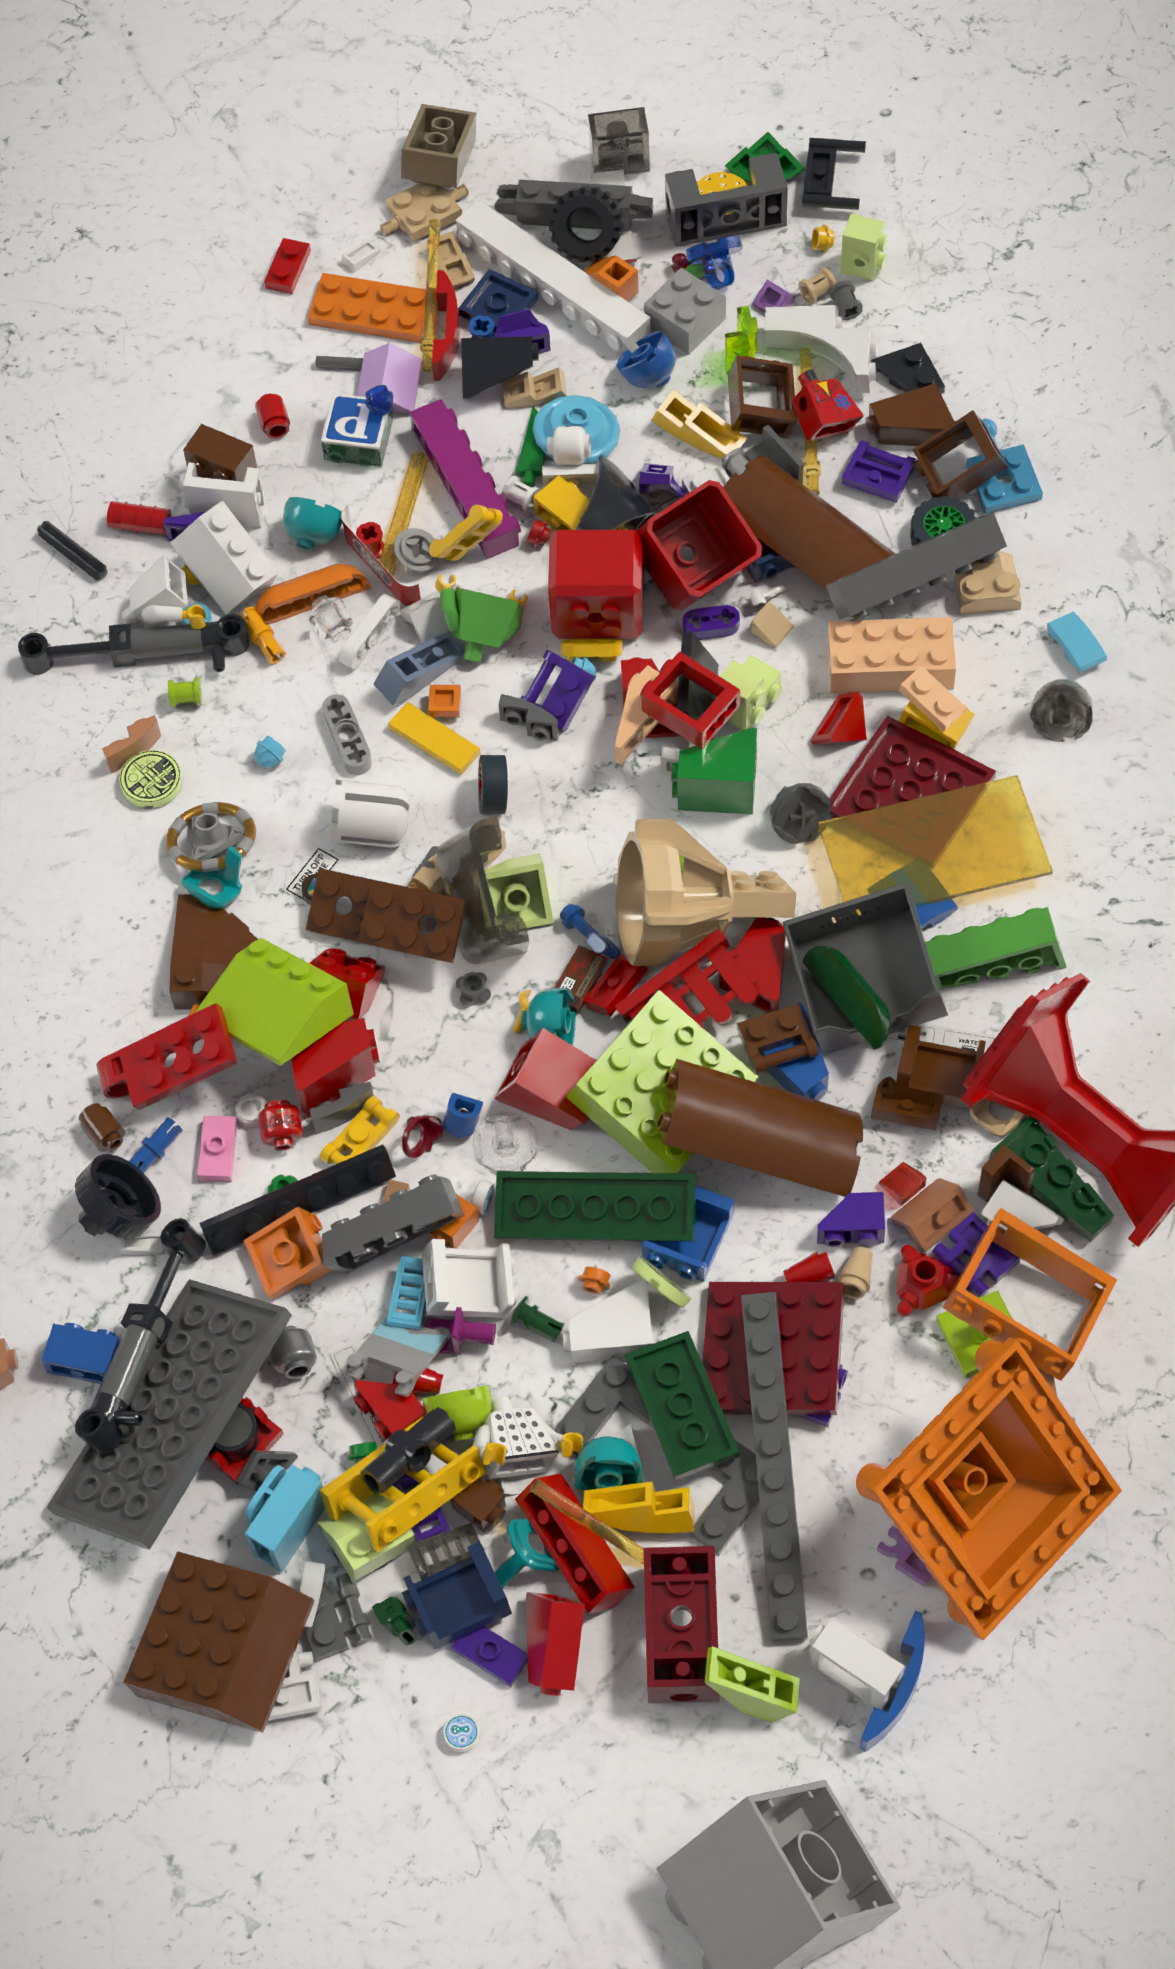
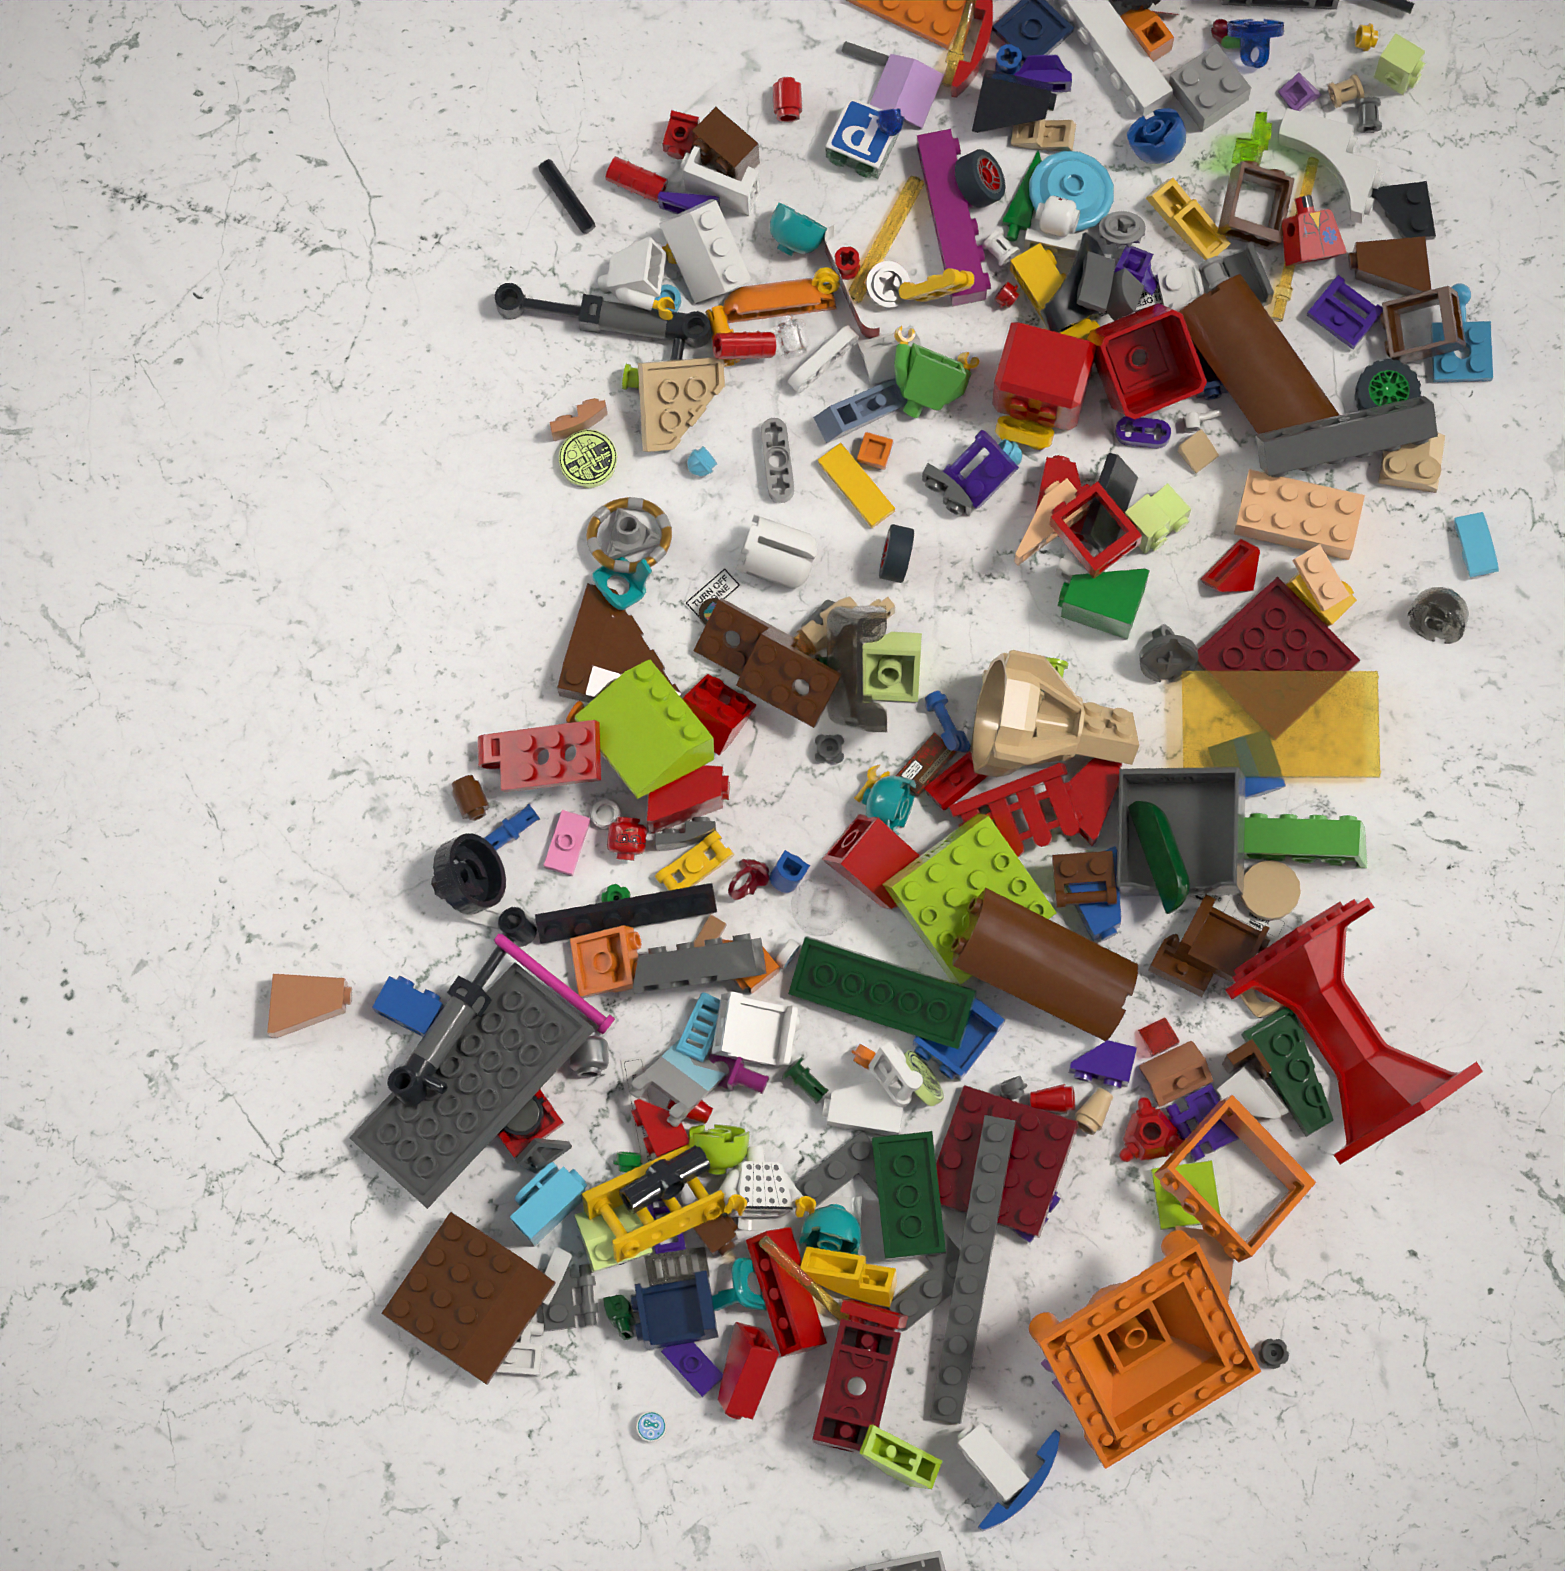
camera: 15 degrees right, 15 degrees up
(170, 467) = (679, 123): none -> red brick
(223, 1281) = (554, 983): none -> dark pink bar
(226, 698) = (675, 397): none -> tan plate
(285, 633) = (744, 345): none -> red axle
(353, 552) = (826, 275): none -> yellow plate
(482, 435) = (980, 178): none -> black wheel
(622, 1271) = (888, 1067): none -> white plate
(624, 487) = (1095, 282): none -> dark grey slope
(636, 449) = (1128, 222): none -> light grey gear
(652, 493) = (1124, 294): none -> dark grey brick
(677, 1539) = (862, 1311): none -> red plate
(763, 1271) = (1012, 1088): none -> dark grey plate
(974, 1010) = (1270, 890): none -> tan tile
(1132, 1464) = (1273, 1361): none -> dark grey plate

